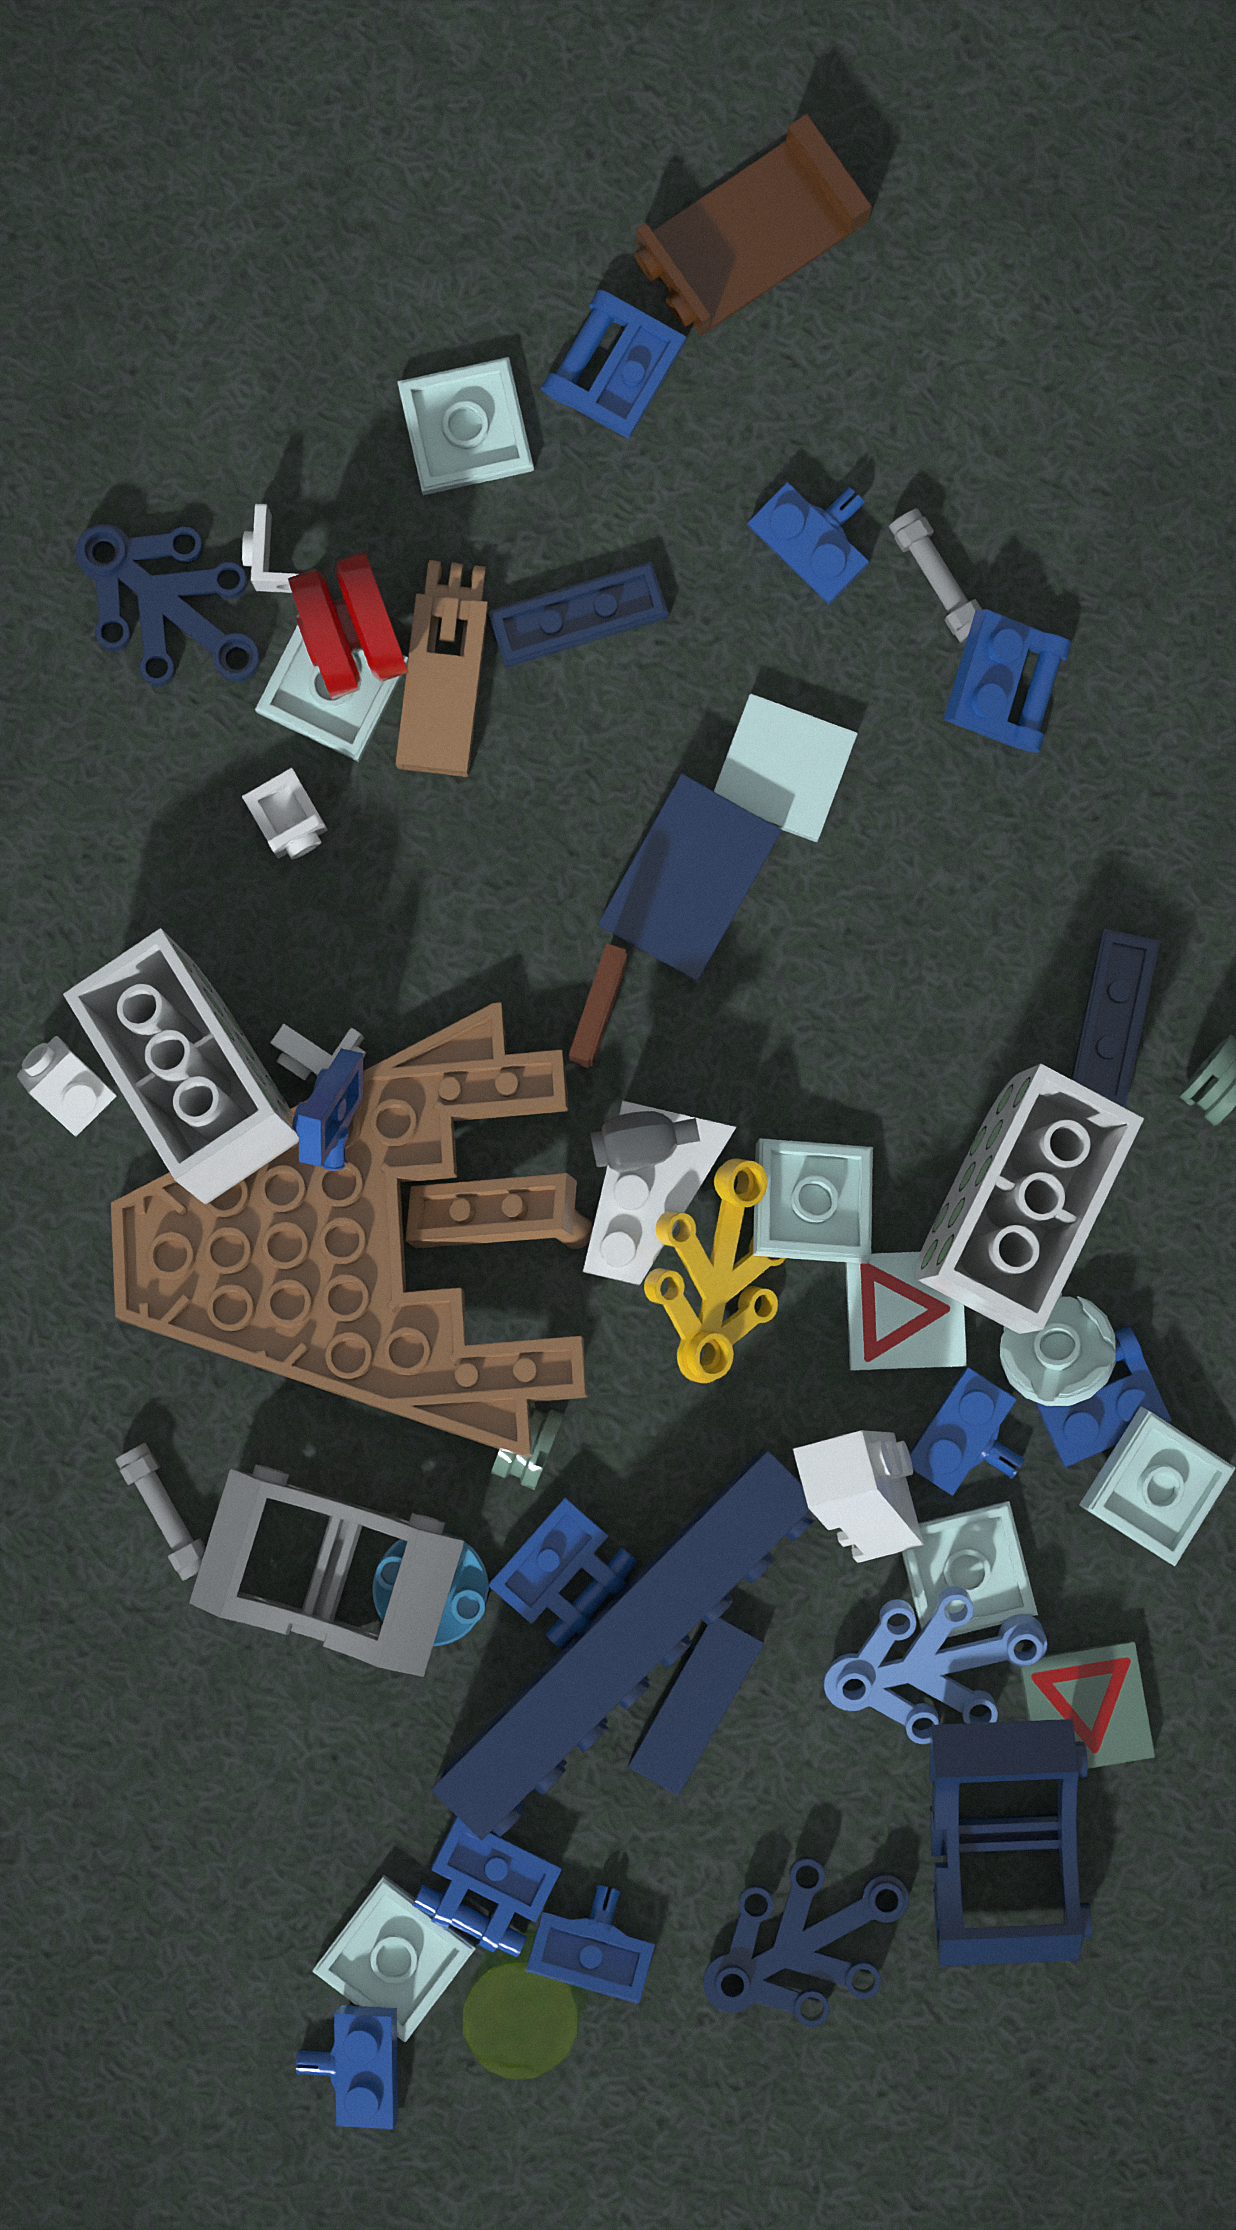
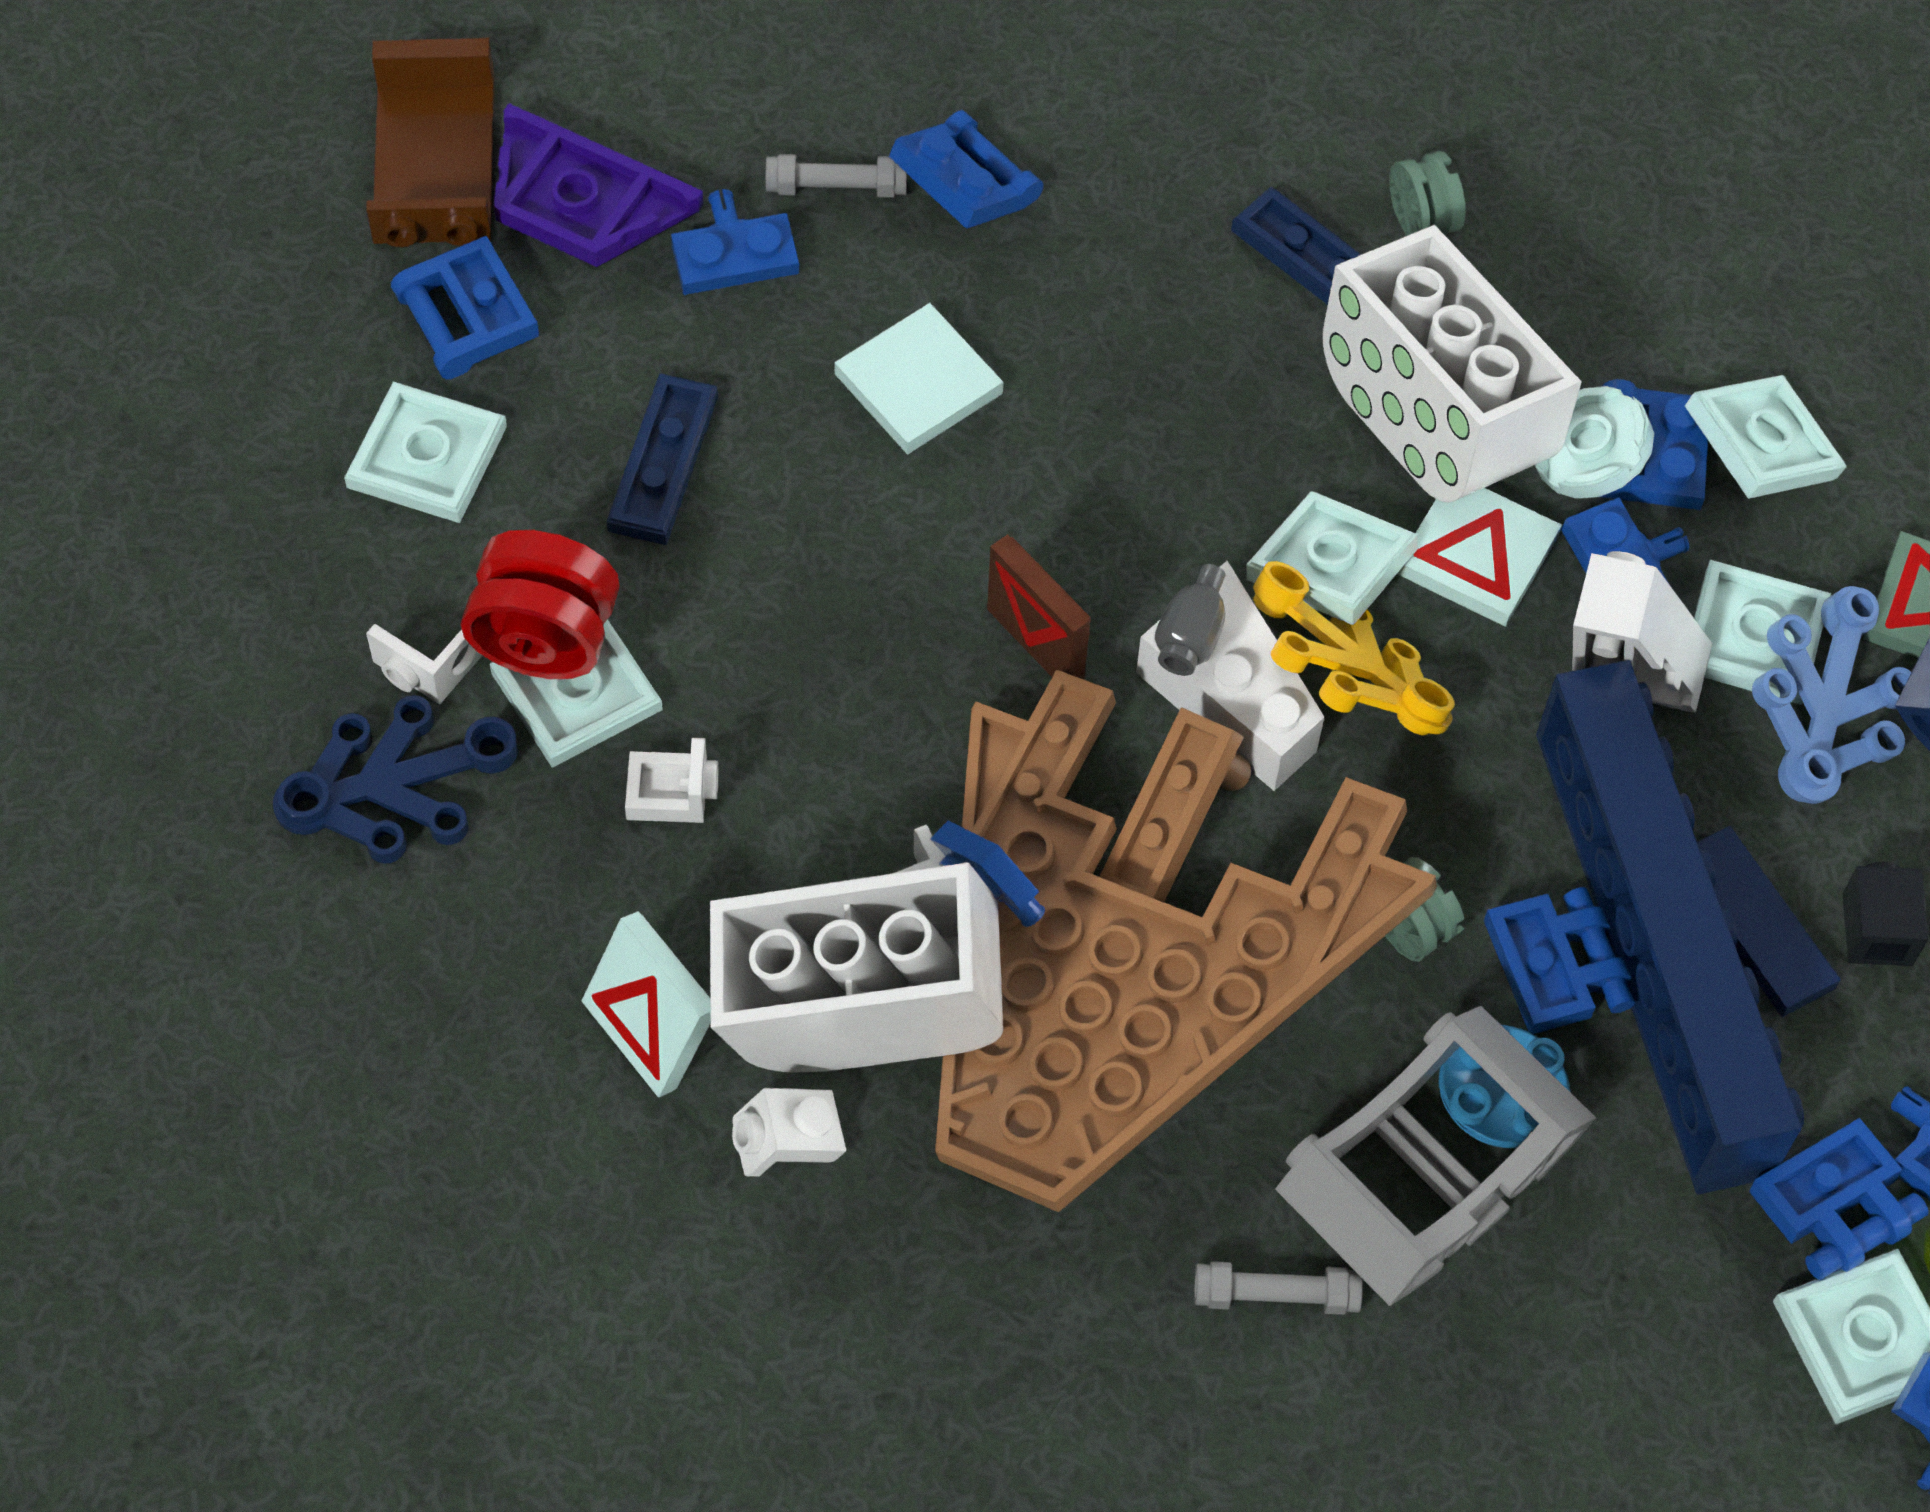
camera: 60 degrees left, 25 degrees down
(84, 924) = (648, 1004): none -> light aqua tile
(442, 687) = (656, 598): medium nougat hinge -> none
(689, 877) = (963, 491): dark blue tile -> none
(755, 1802) = (1885, 915): none -> black brick
(784, 378) = (581, 191): none -> dark purple wing

